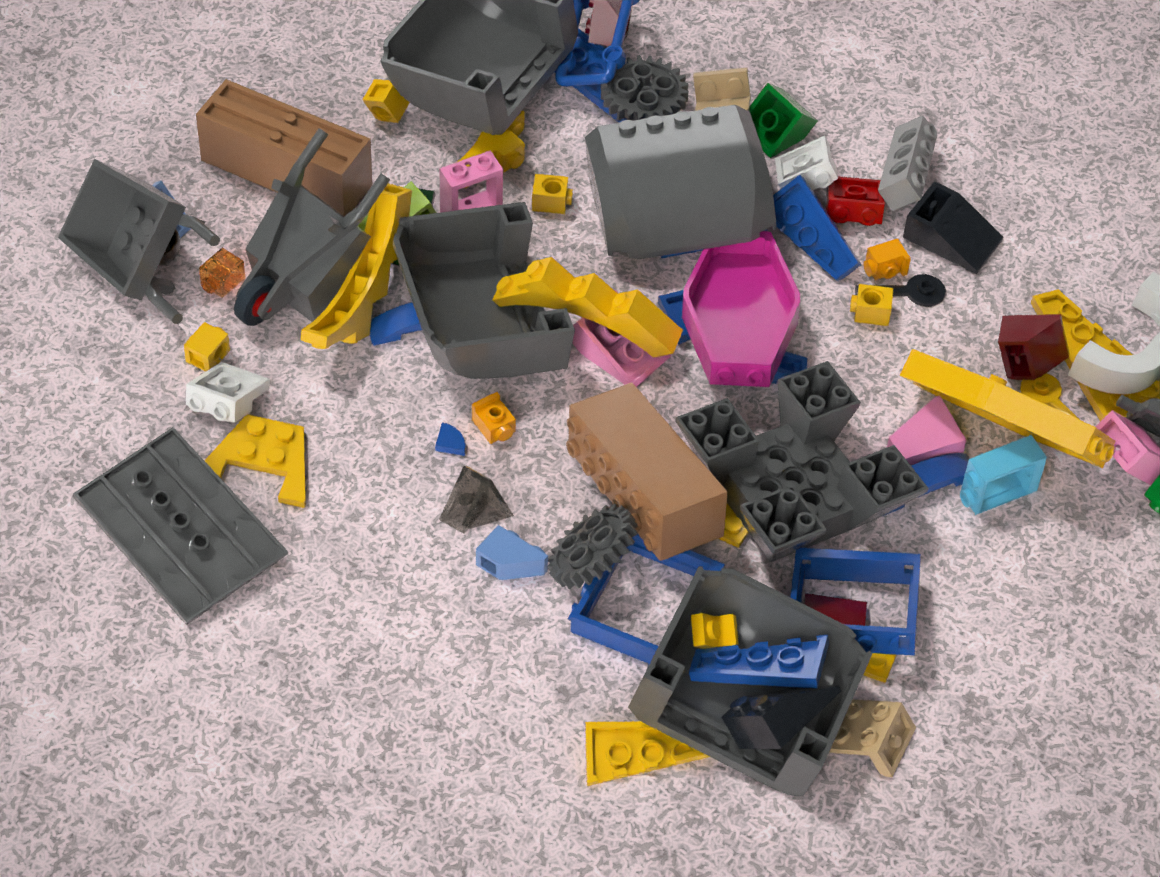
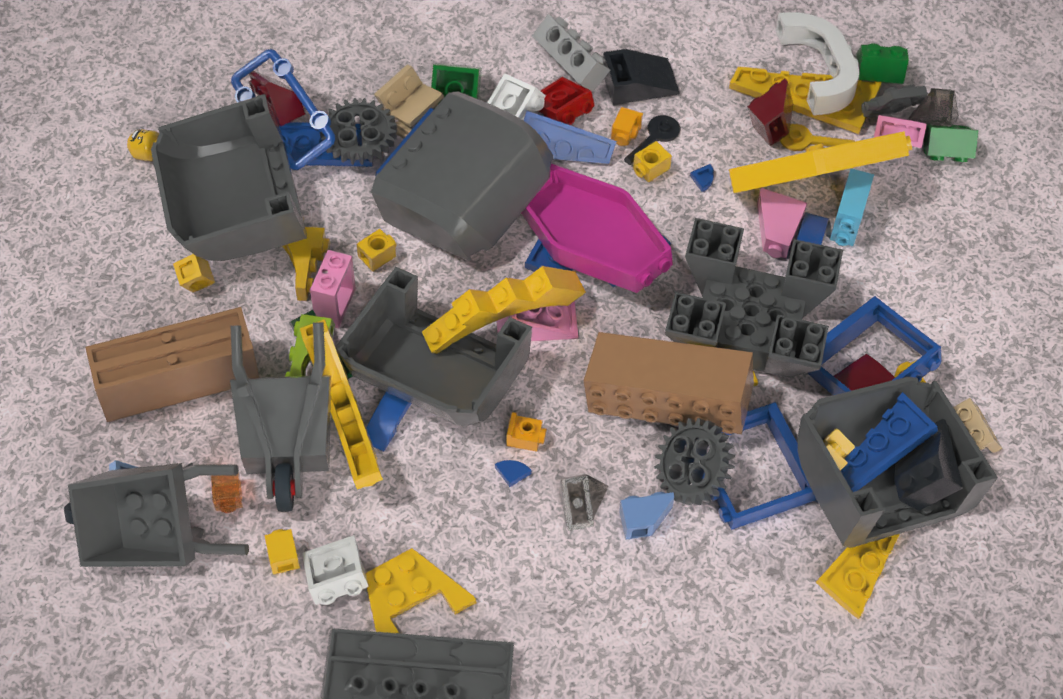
camera: 45 degrees left, 5 degrees up
(903, 353) = (703, 177): none -> blue tile

